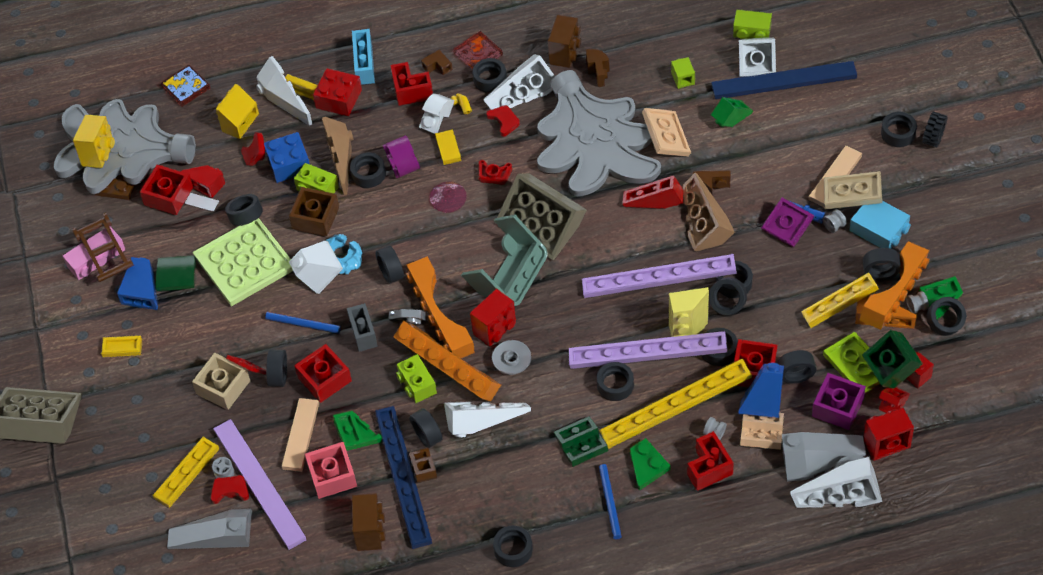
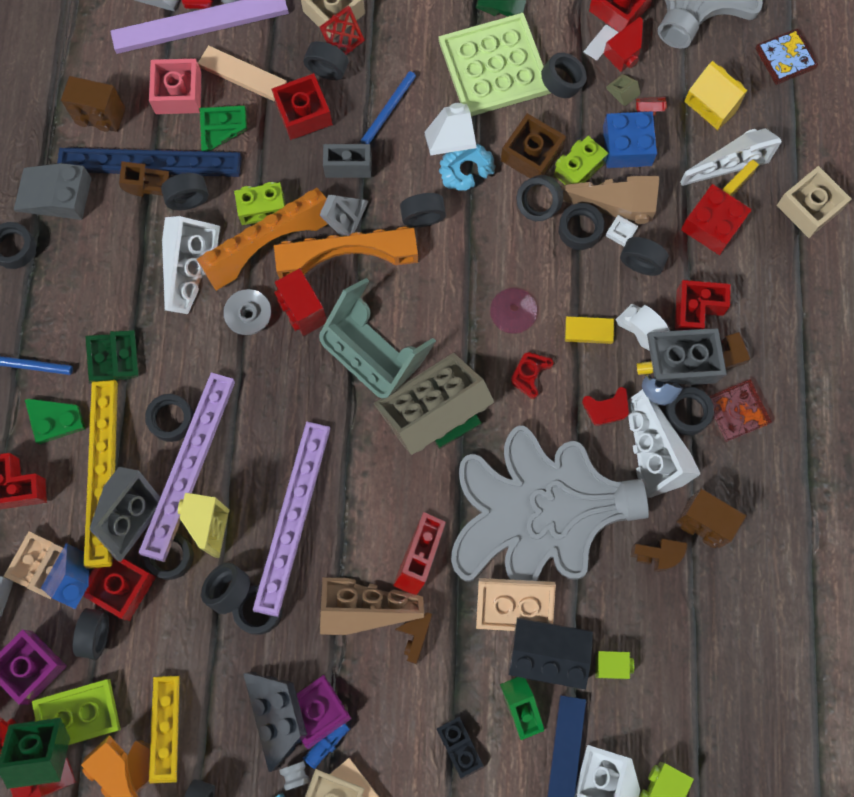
camera: 105 degrees right, 20 degrees up
(240, 176) = (624, 89): none -> olive slope
(307, 39) = (813, 202): none -> tan brick
(345, 200) = (527, 210): none -> black tyre
(361, 146) = (621, 230): none -> white tile
(363, 56) = (764, 261): medium azure brick -> none
(382, 122) = (644, 256): none -> black tyre
(401, 156) = (581, 264): magenta brick -> none
(451, 76) = (687, 356): none -> dark grey slope
(453, 534) = (54, 190): none -> dark grey slope
(484, 85) = (659, 391): none -> sand blue hair
(690, 103) = (550, 653): none -> black slope
(690, 370) = (124, 511): none -> dark grey slope
(717, 427) = (58, 508): light grey wheel -> none
(774, 140) = (460, 748): none -> black slope
(800, 241) = (276, 716): none -> black wing

